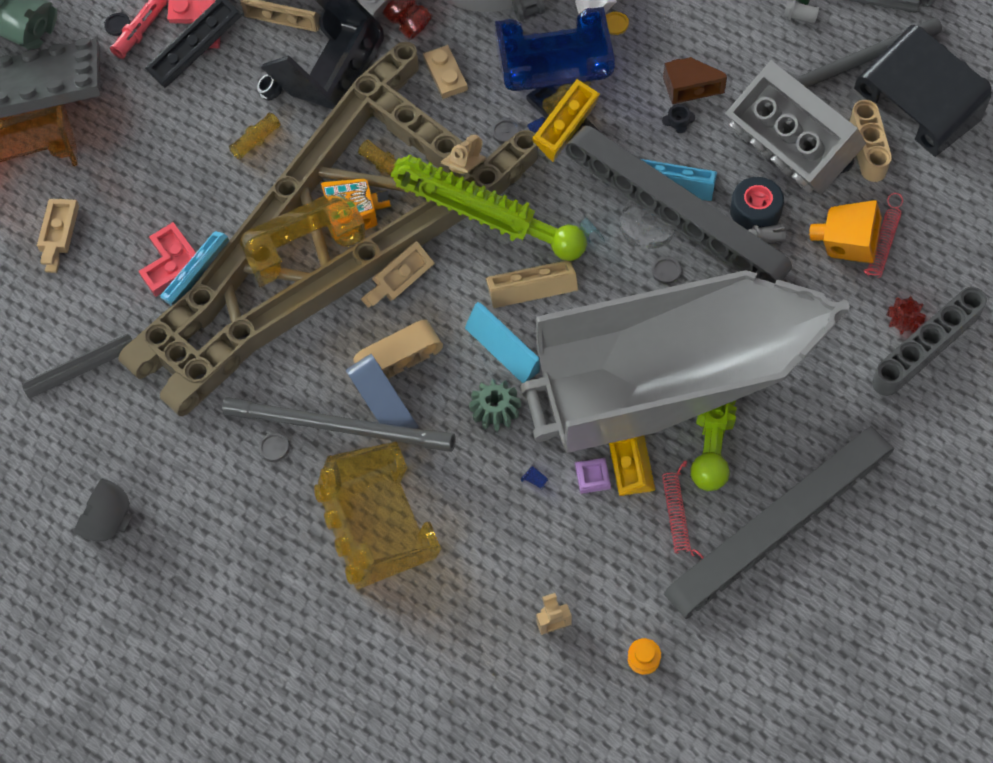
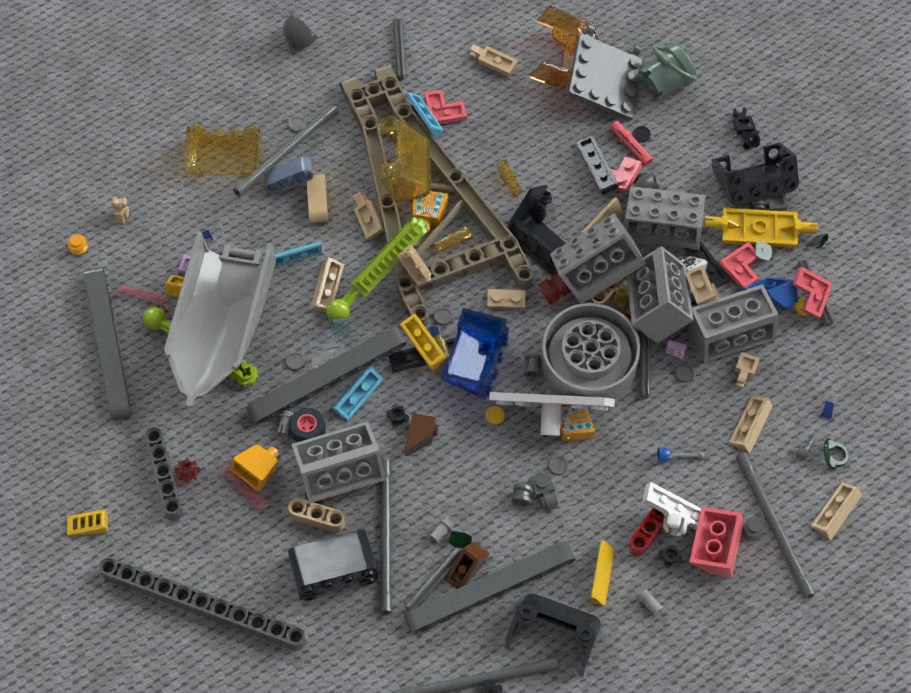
camera: 110 degrees right, 0 degrees up
(503, 413) = (256, 232): sand green gear -> none

